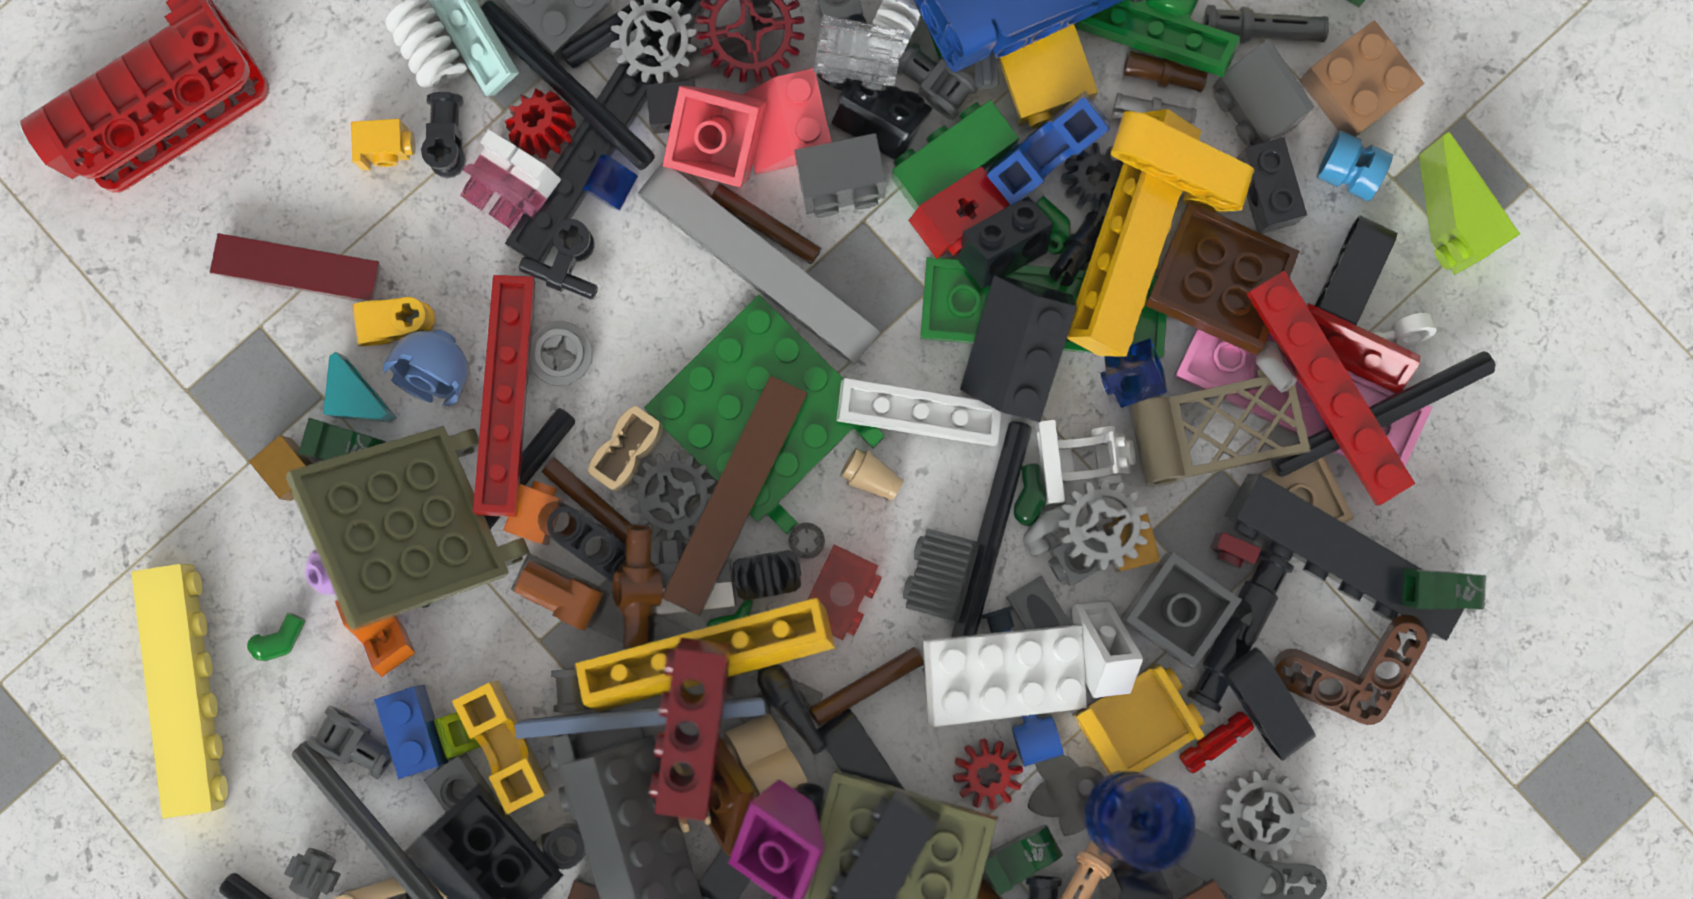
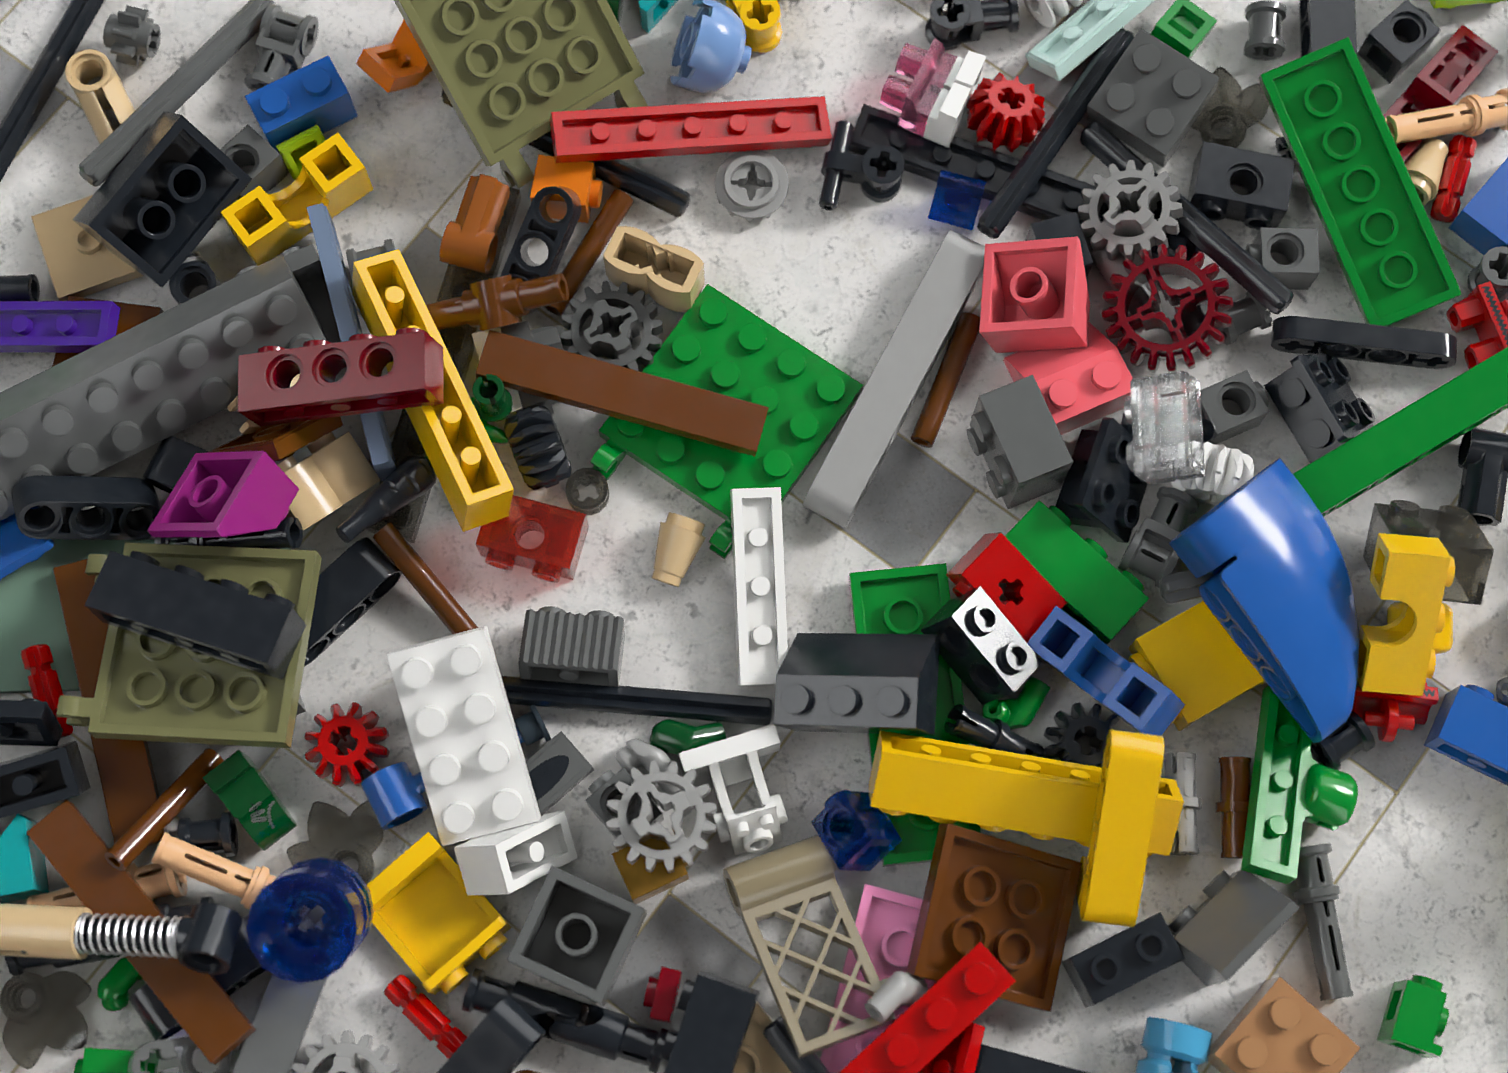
camera: 75 degrees right, 10 degrees down
(735, 608) = (492, 389): none -> dark green pin

